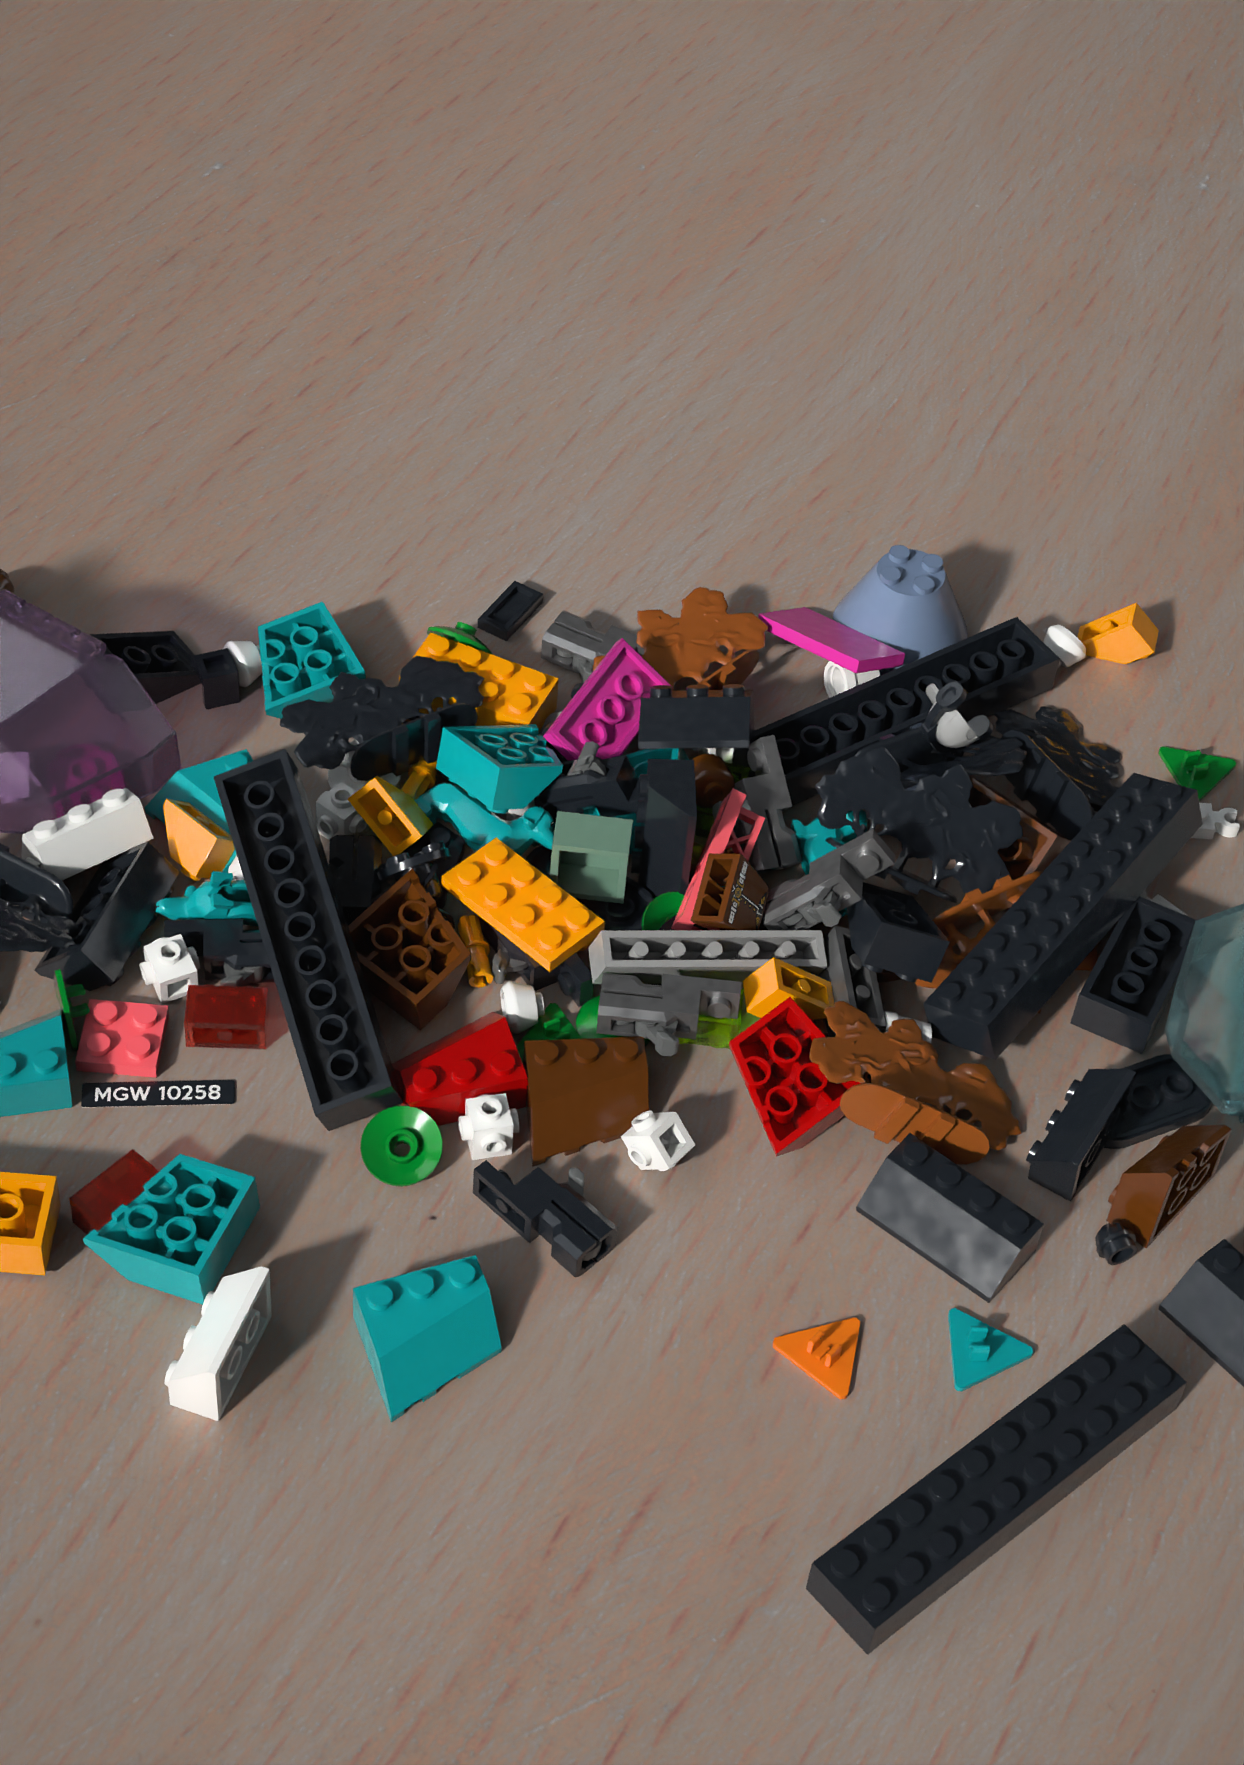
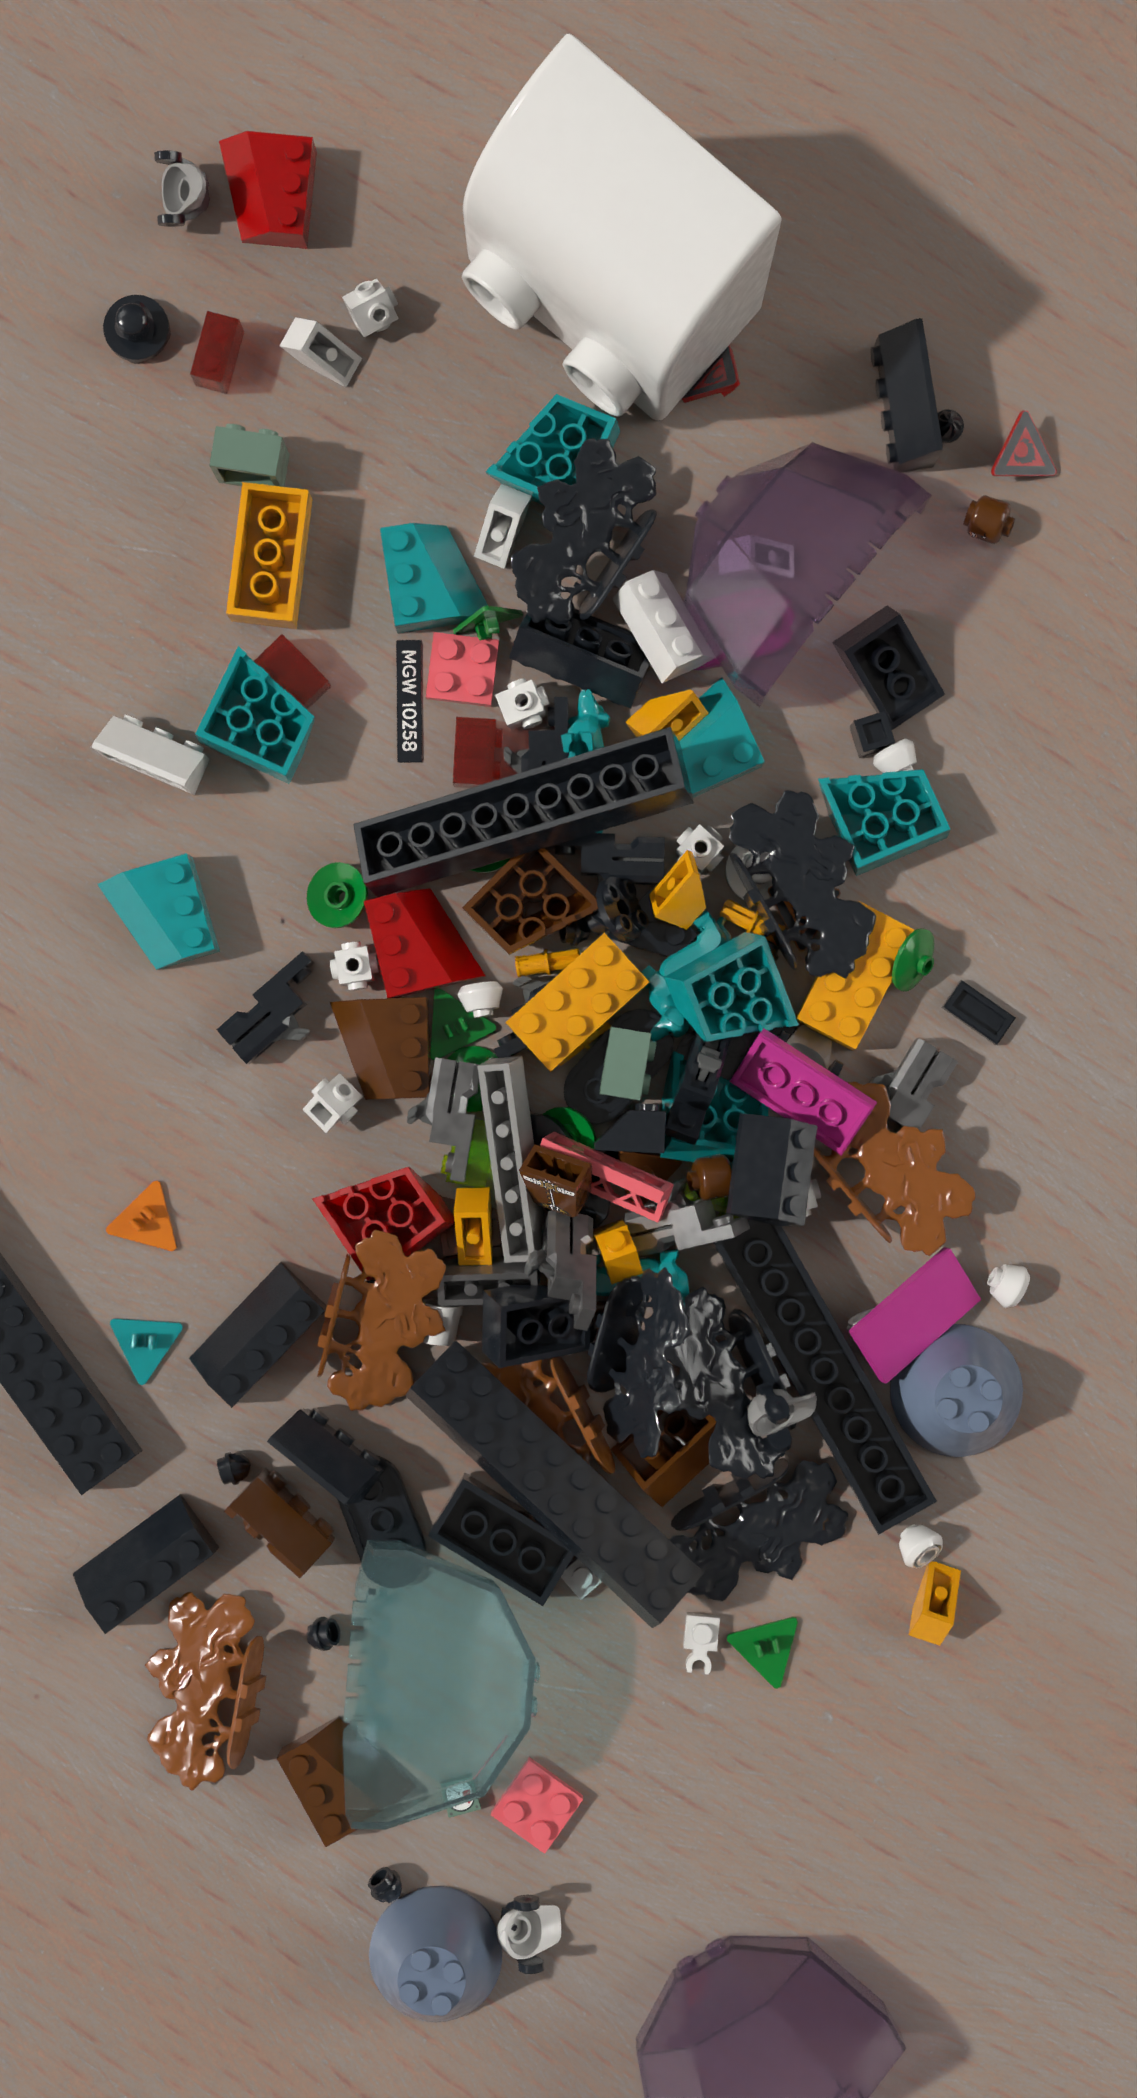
camera: 100 degrees right, 40 degrees up
(788, 581) = (1008, 1284): none -> white cone
(792, 858) = (617, 1251): none -> light orange slope

